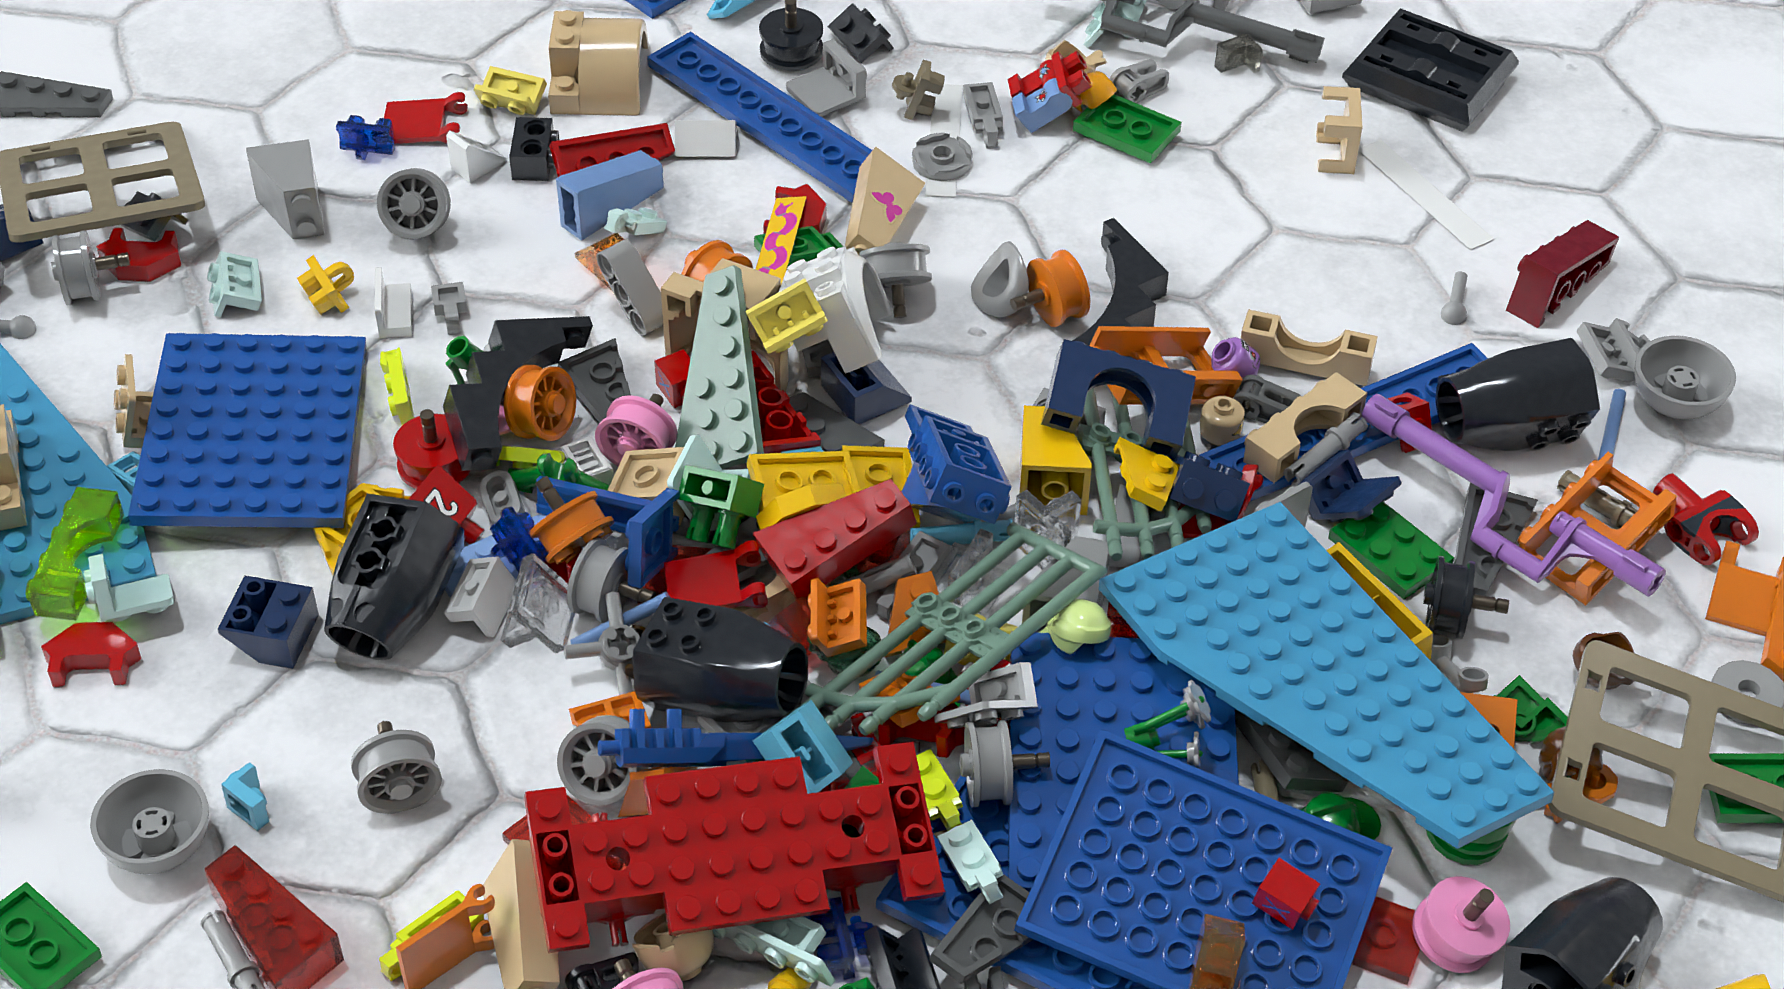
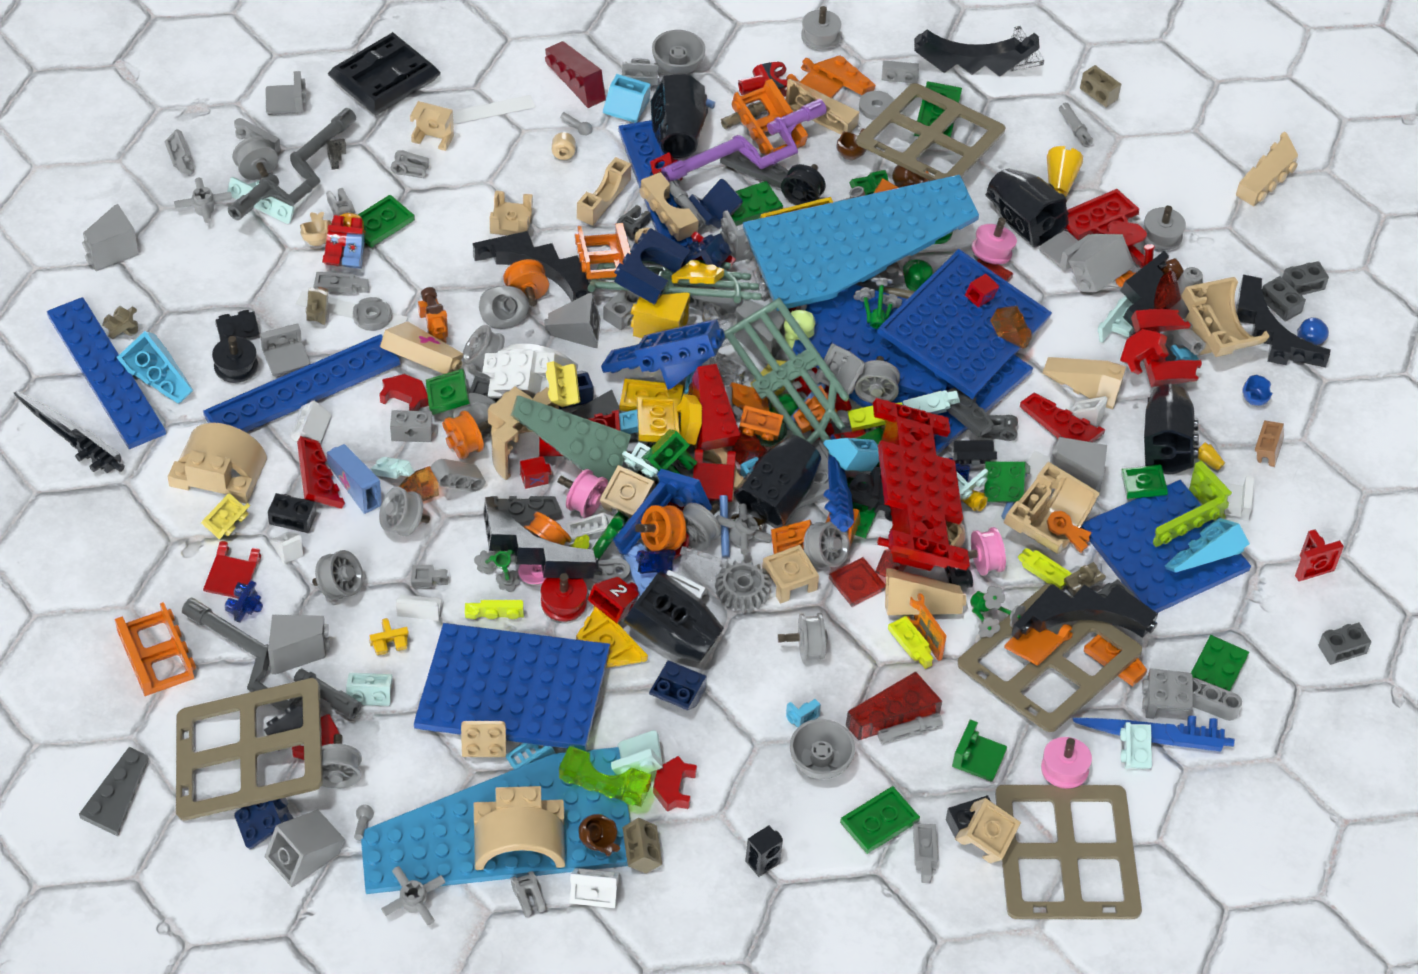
camera: 80 degrees left, 5 degrees up
(228, 219) = (204, 616): none -> dark grey piece
(262, 69) = (142, 658): none -> orange window
(505, 673) = (743, 586): none -> light grey gear
(536, 725) = (790, 571): none -> tan panel
(546, 242) = (402, 511): none -> light grey wheel
(727, 223) = (411, 426): none -> light grey brick
(780, 236) = (444, 395): yellow sticker -> none
(946, 210) = (434, 314): none -> orange hips
(1006, 372) = (576, 321): none -> light grey slope
(1206, 262) = (510, 217): none -> tan panel
(1235, 355) = (603, 223): medium lavender head -> none
(1258, 126) = (410, 164): none -> light grey piece
(1389, 287) = (563, 146): none -> tan head
(1538, 325) = (627, 98): none -> medium azure slope
(1682, 599) = (838, 115): none -> tan wedge

